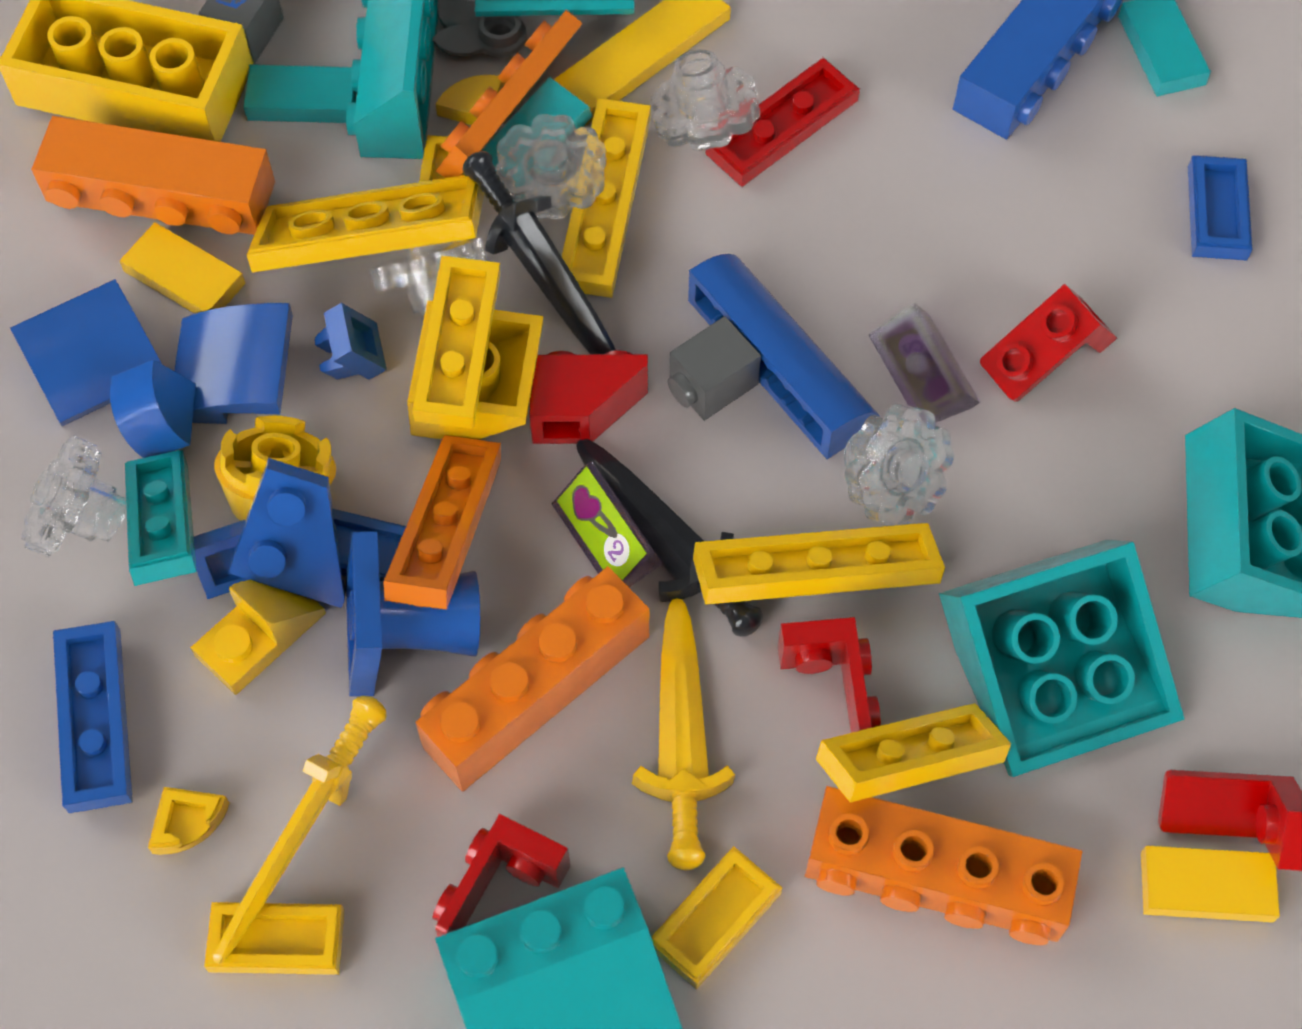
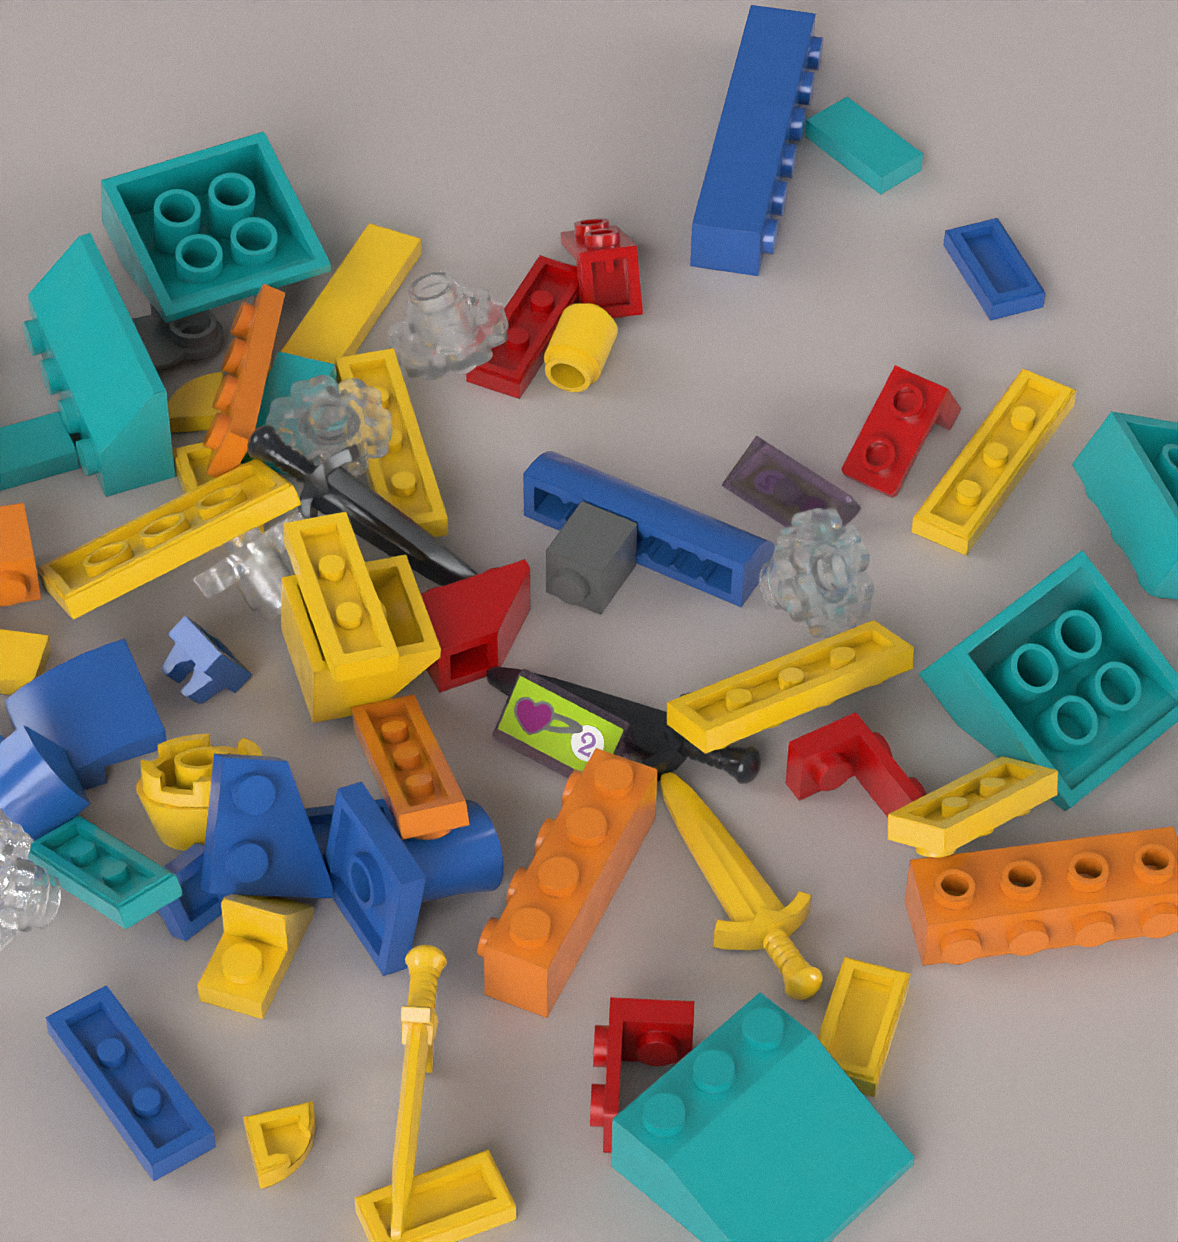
camera: 25 degrees left, 15 degrees down
(810, 158) = (579, 347): none -> yellow brick
(868, 89) = (605, 266): none -> red bracket
(1121, 401) = (993, 462): none -> yellow tile

